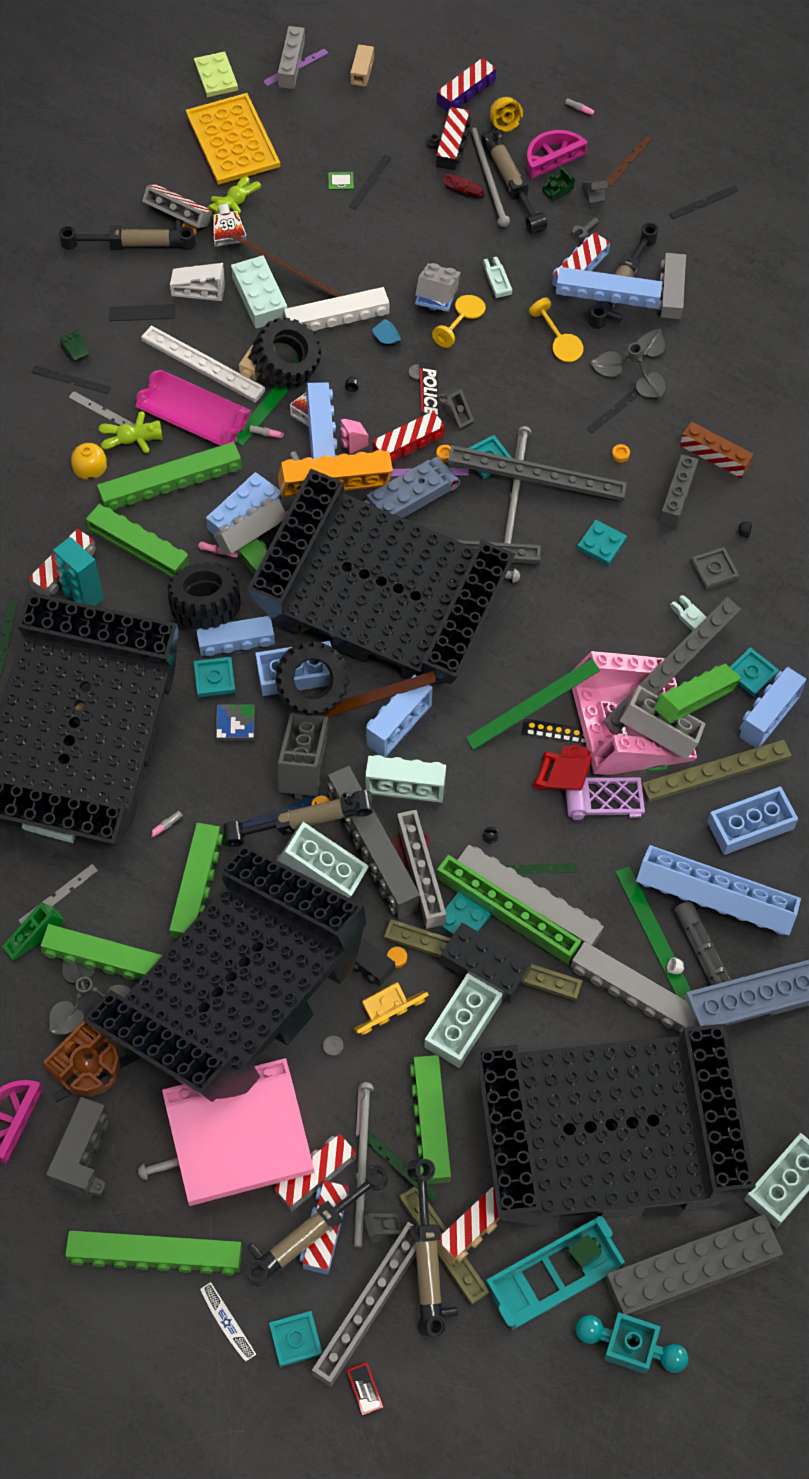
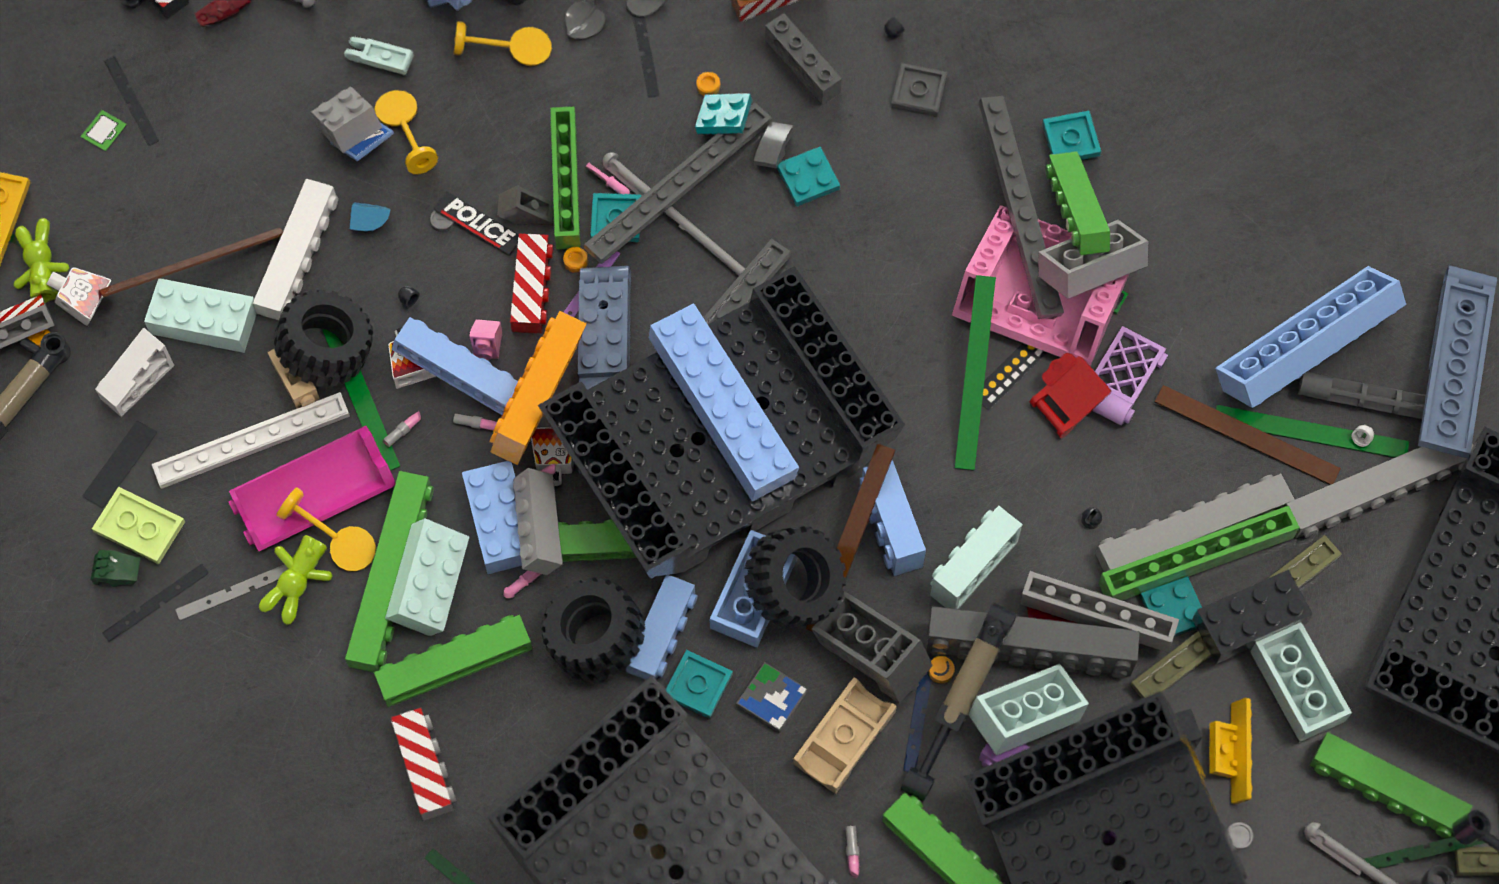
camera: 55 degrees left, 5 degrees up
(78, 573) = (471, 751): teal brick -> none
(88, 461) = (295, 650): yellow cylinder -> none
(109, 341) = (138, 525): none -> yellowish green plate
(172, 447) = (350, 547): none -> yellow piece
(177, 494) = (427, 577): none -> light aqua brick
(237, 773) = (843, 736): none -> tan piece
(393, 569) = (723, 402): none -> light blue brick
(398, 955) = (1179, 701): light orange tile -> none
(491, 413) = (565, 178): none -> bright green brick
(511, 441) = (610, 182): none -> bright pink piece
(545, 868) = (1163, 490): dark green piece -> none
(603, 470) = (723, 113): none -> plate
(603, 509) = (772, 145): none -> dark grey slope
(622, 897) = (1247, 435): none -> reddish brown piece
(691, 616) = (963, 150): light aqua hinge -> none
(716, 770) = (1162, 249): olive plate -> none
(752, 820) = (1249, 252): light blue brick -> none
(772, 707) = (1133, 146): light blue brick -> none

